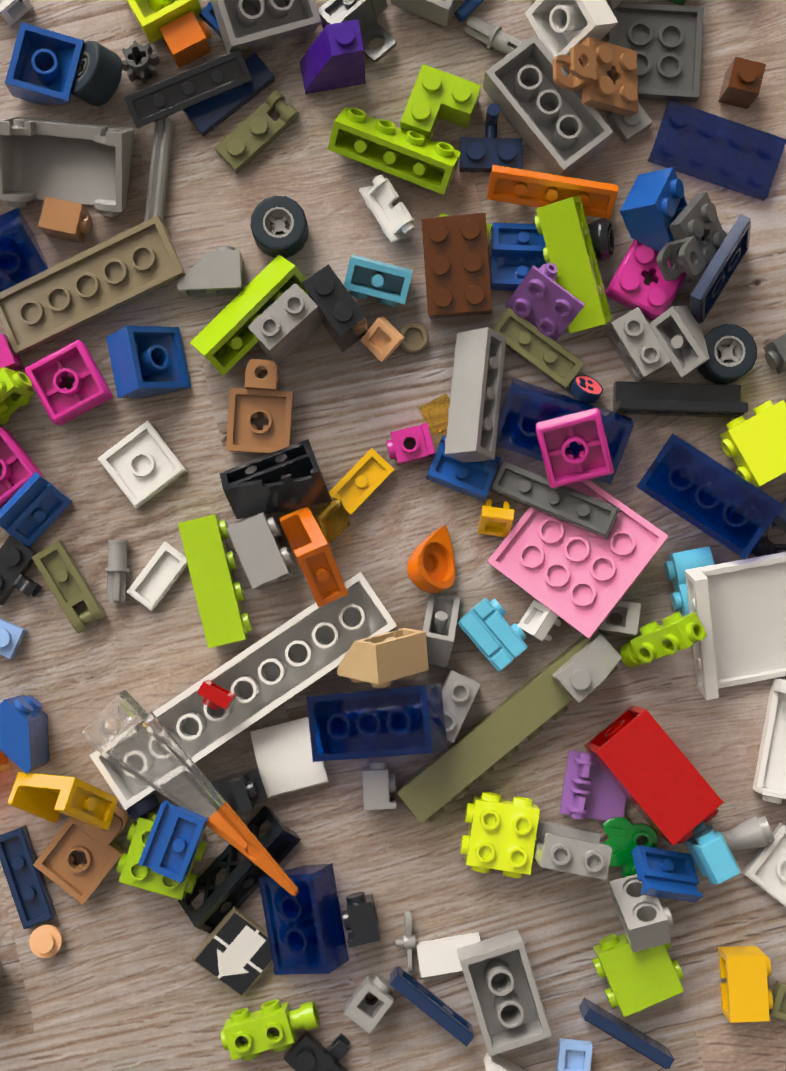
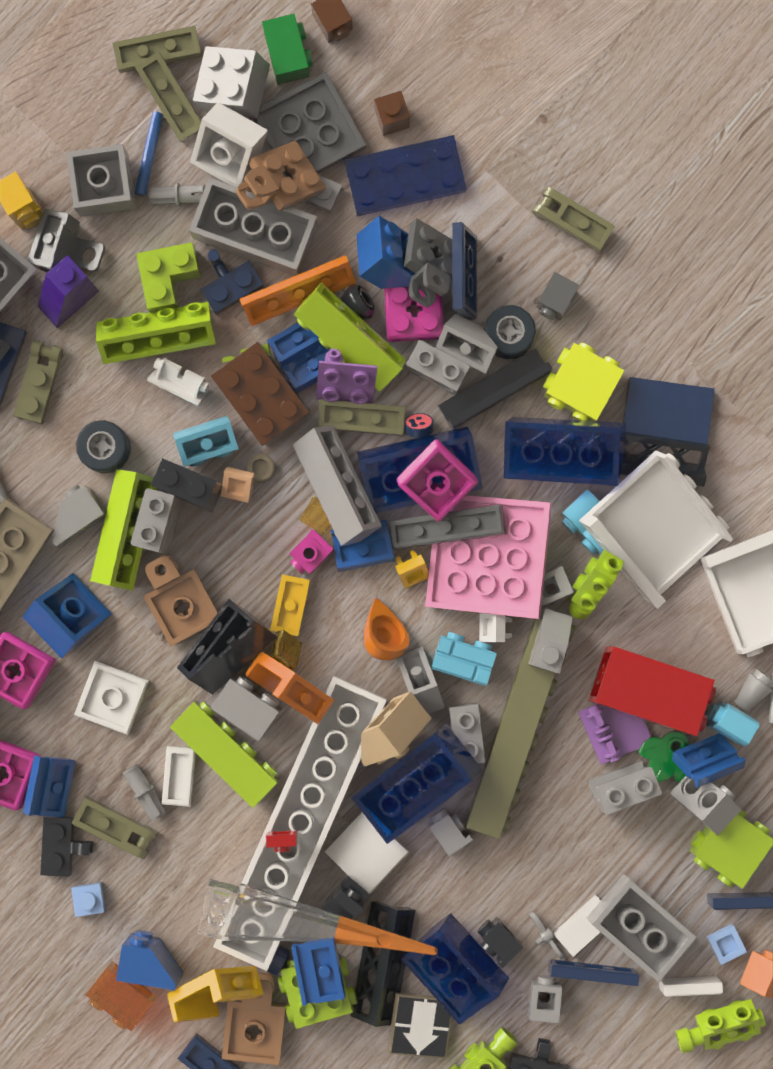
camera: 30 degrees left, 0 degrees up
(500, 834) = (565, 809): neon yellow brick -> none

